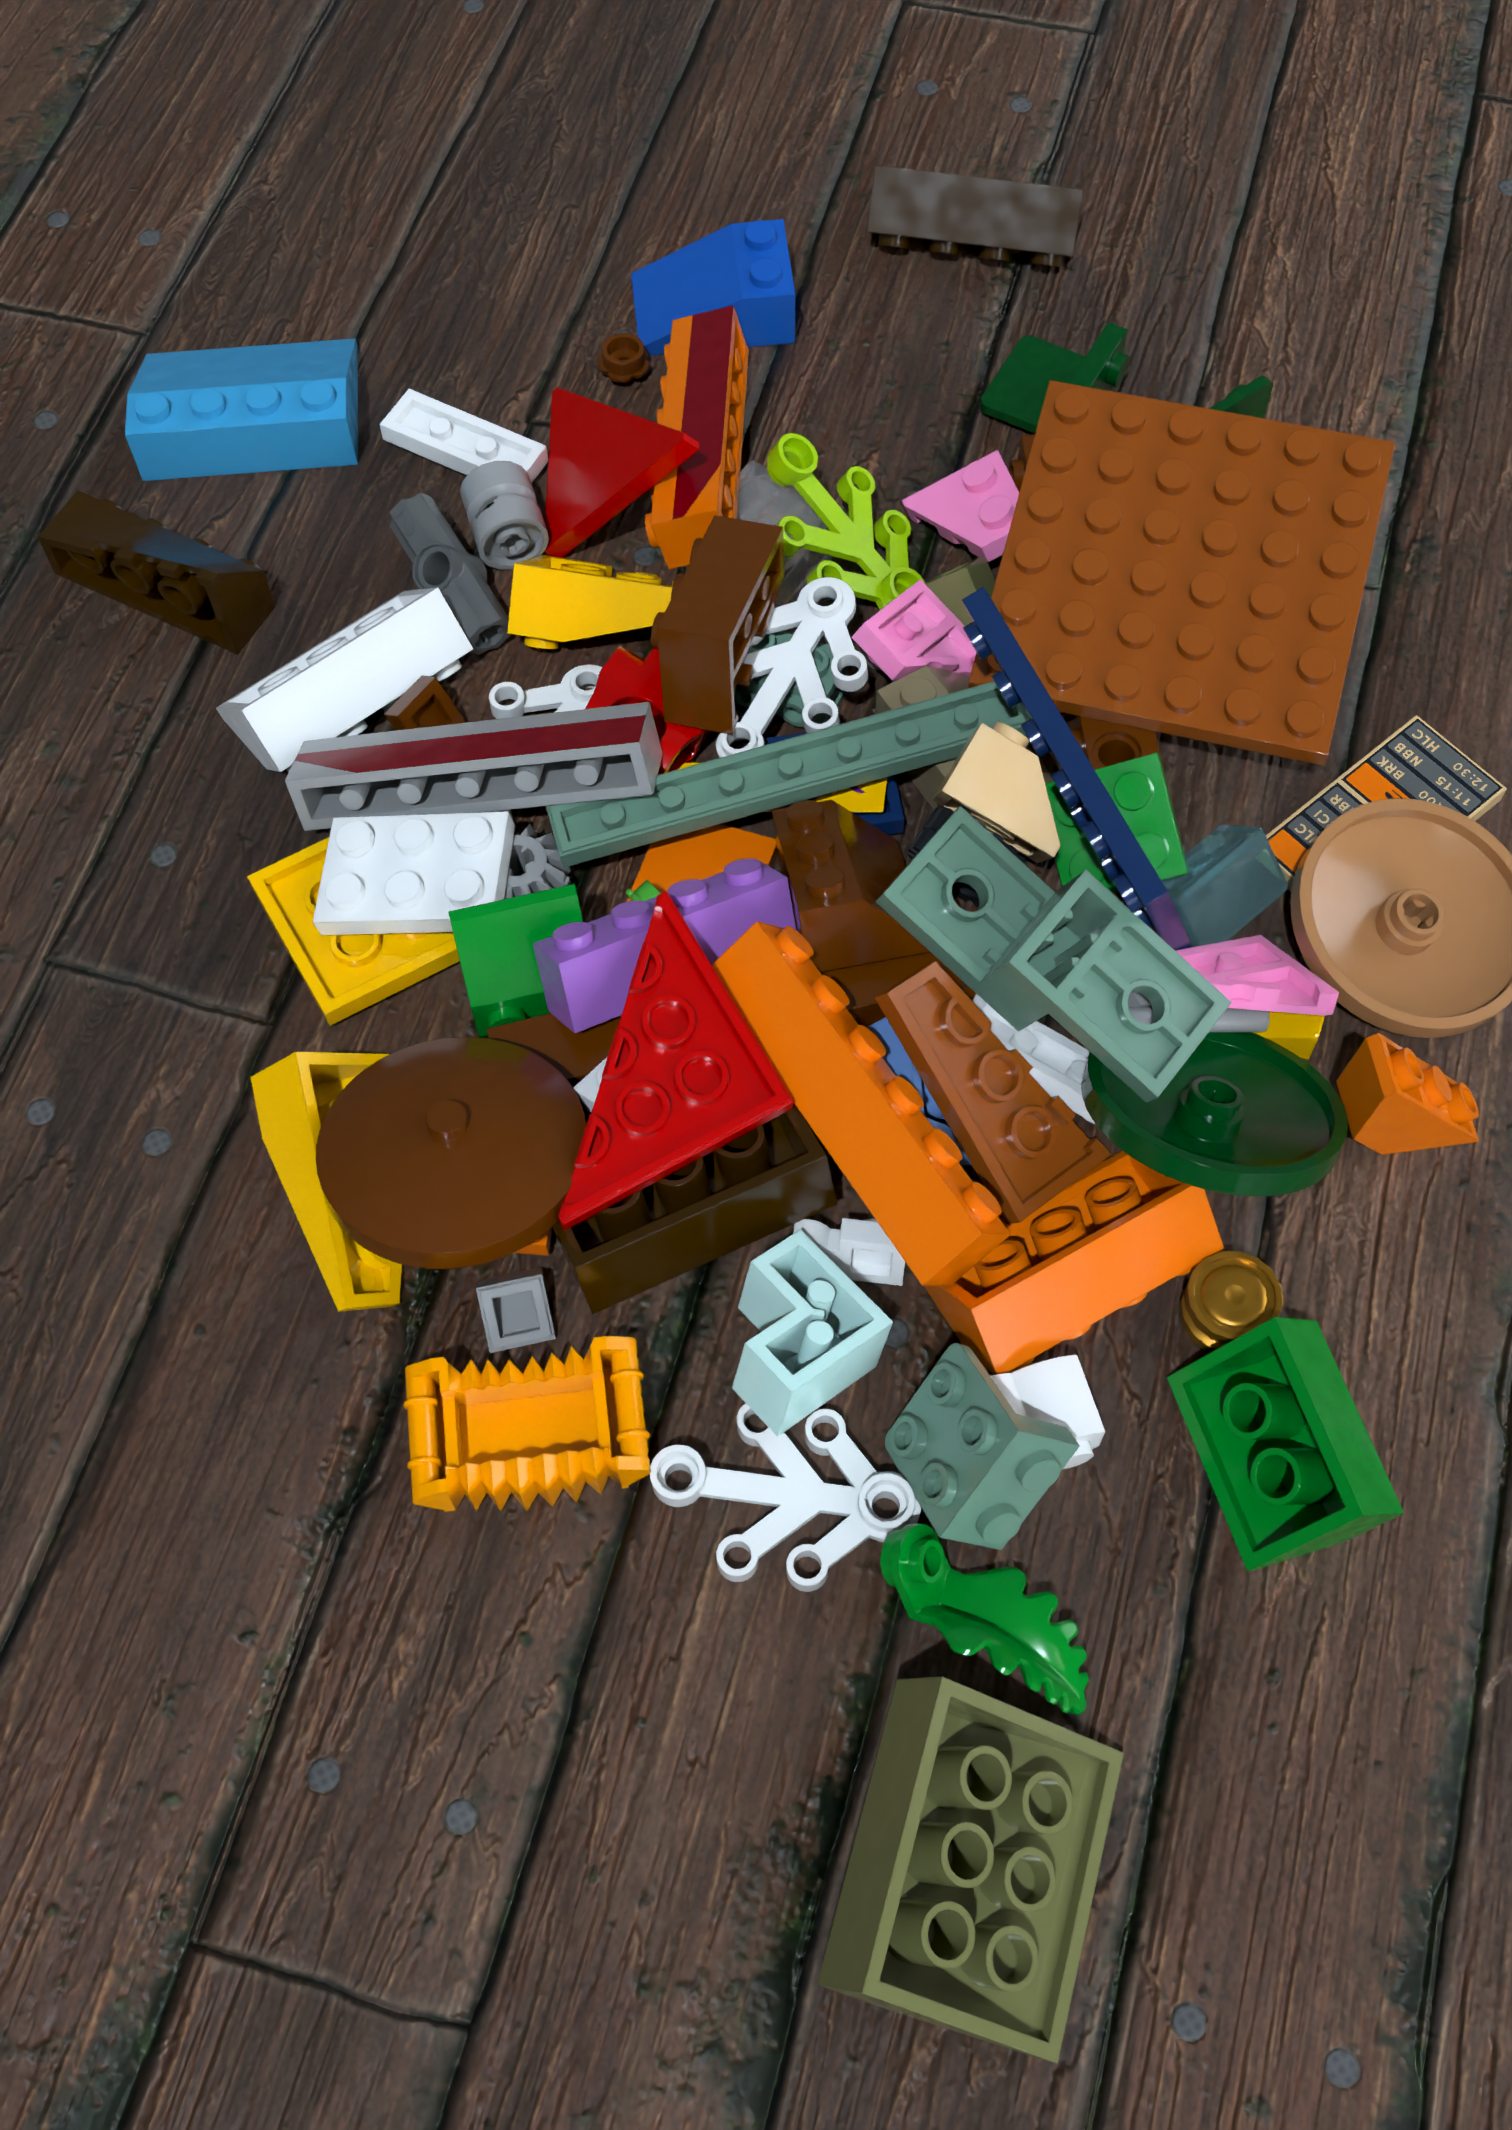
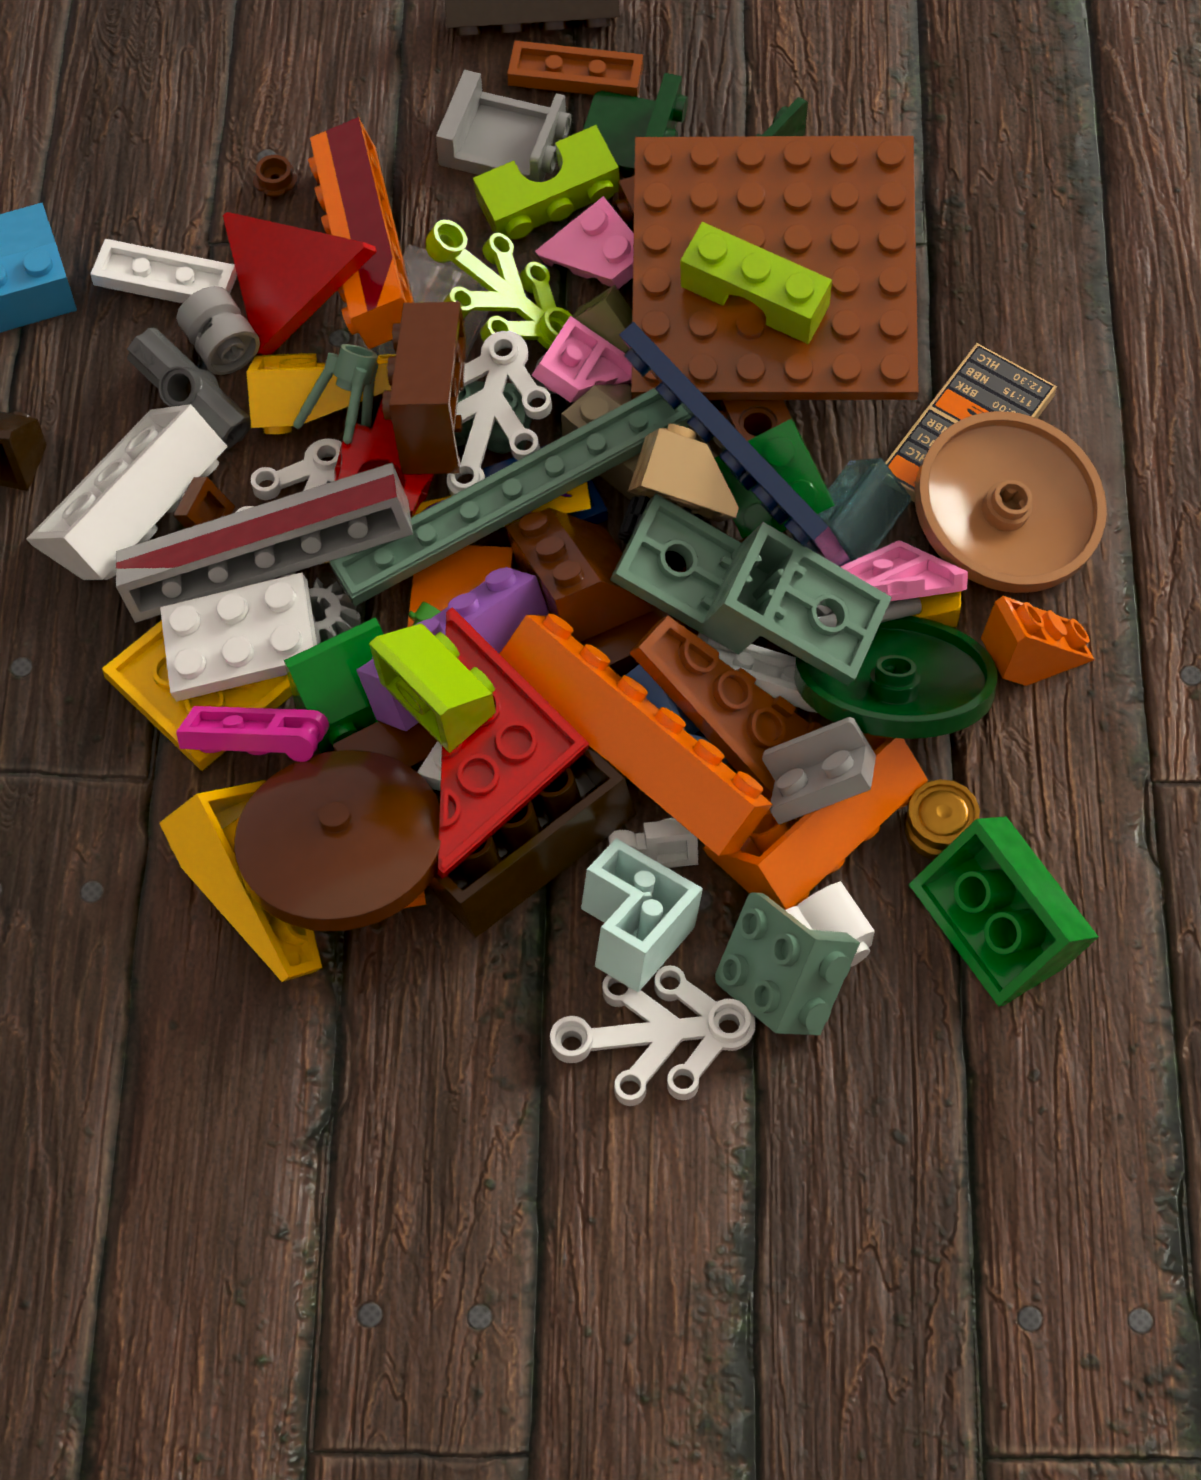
camera: 15 degrees left, 0 degrees up
(394, 990) = (253, 731): none -> dark pink plate
(515, 1310) = (413, 950): light grey slope -> none
(526, 1428) = (449, 1031): light orange piece -> none
(611, 978) = (433, 683): none -> lime slope
(637, 584) = (356, 373): none -> sand green plant
(732, 266) = (332, 90): blue slope -> none
(897, 362) = (493, 130): none -> light grey panel
(900, 444) = (518, 204): none -> lime arch
(973, 1868) = (855, 1251): olive slope -> none
(987, 1613) = (821, 1079): green plant -> none
(1004, 305) = (574, 69): none -> dark orange plate
(1083, 1203) = (819, 769): none -> light grey bracket
(1190, 596) = (786, 292): none -> lime arch

